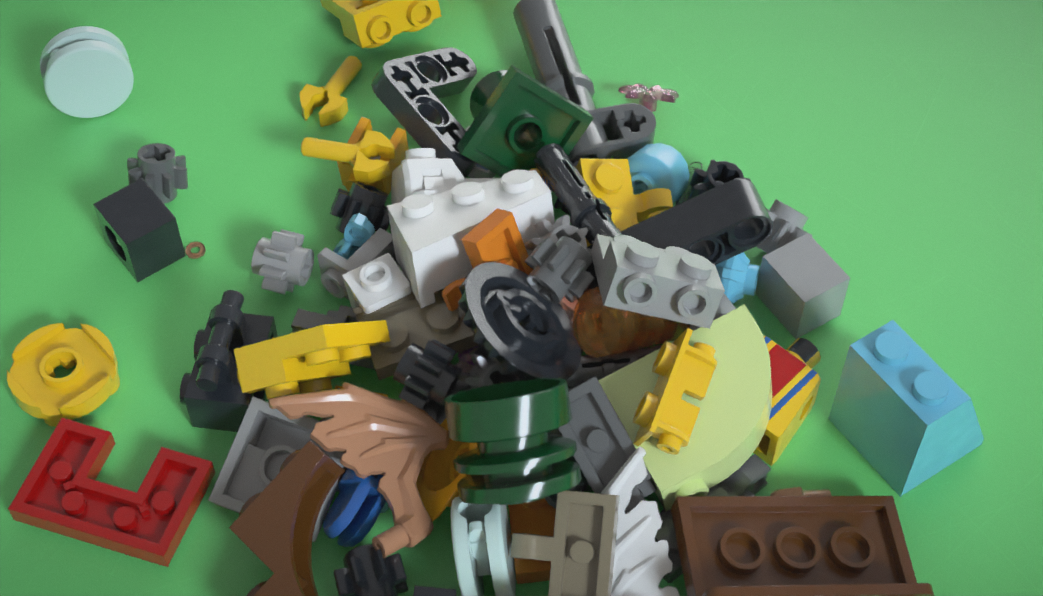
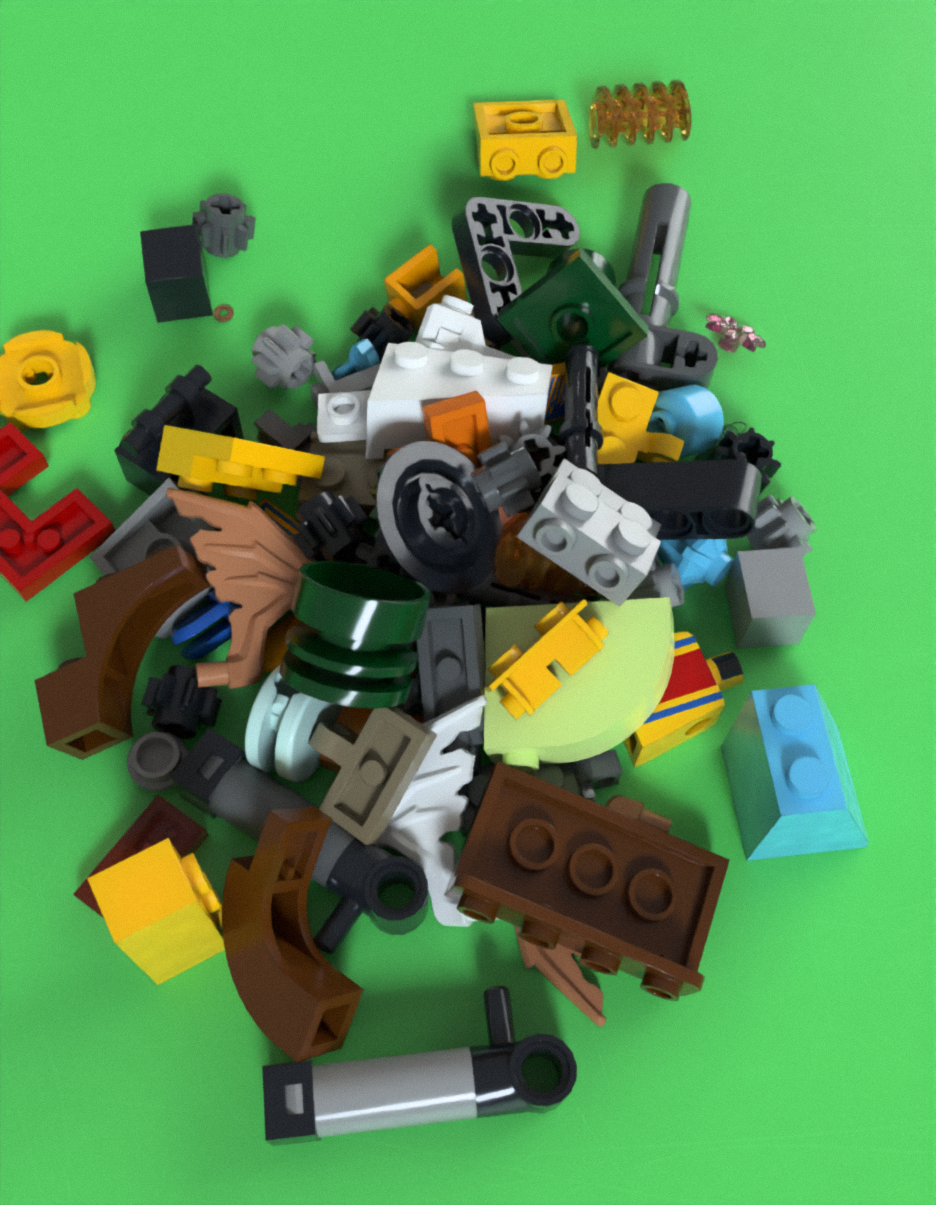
camera: 25 degrees right, 10 degrees up
(86, 72) = (213, 102): light aqua head -> none
(330, 93) = (426, 211): yellow bar -> none
(356, 154) = (400, 298): yellow bar -> none

